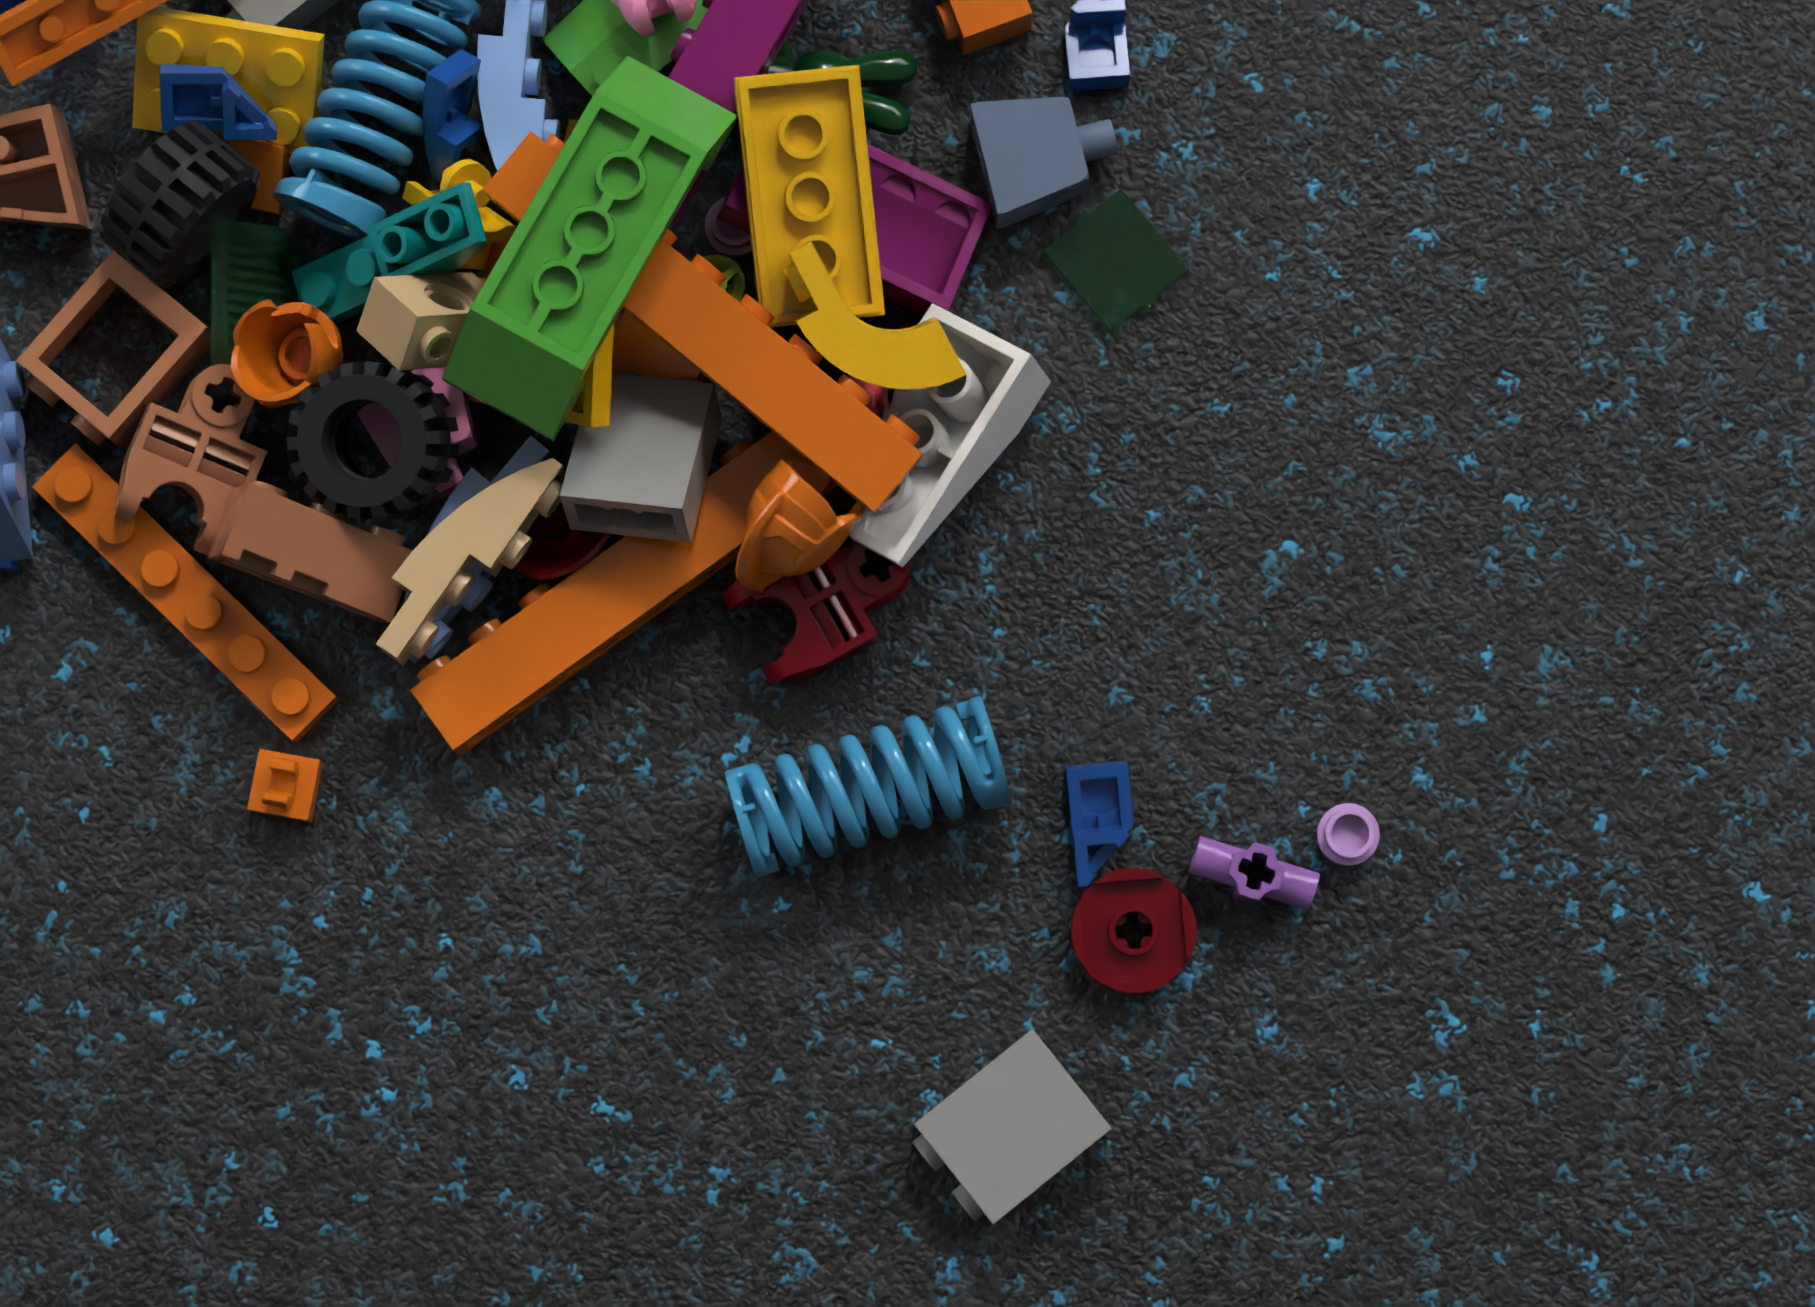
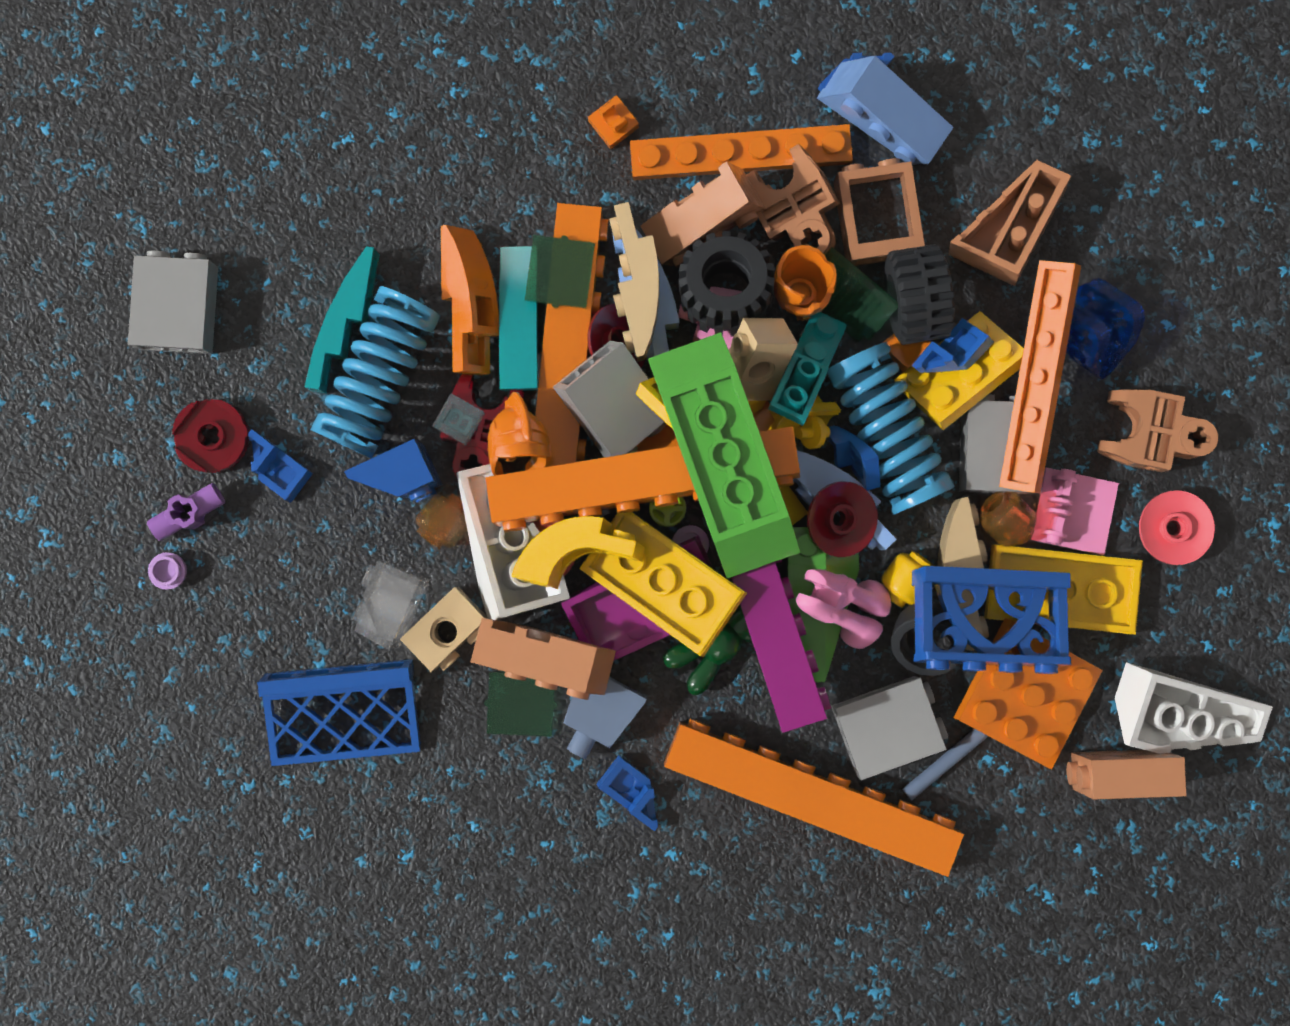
camera: 130 degrees right, 5 degrees up
(538, 667) = (559, 272): none -> clear green piece
(539, 38) = (856, 521): none -> dark red dish
(640, 676) = (517, 322): none -> teal slope
(653, 769) = (471, 288): none -> orange slope
(816, 900) = (347, 308): none -> teal slope
(834, 627) = (458, 419): none -> clear light blue tile
(966, 641) = (400, 471): none -> blue slope
(977, 544) = (442, 521): none -> clear orange head
(1029, 262) = (544, 657): none -> nougat wedge
(1076, 442) = (424, 637): none -> tan brick
(1137, 513) = (389, 603): none -> clear slope
(1282, 494) = (333, 681): none -> blue fence

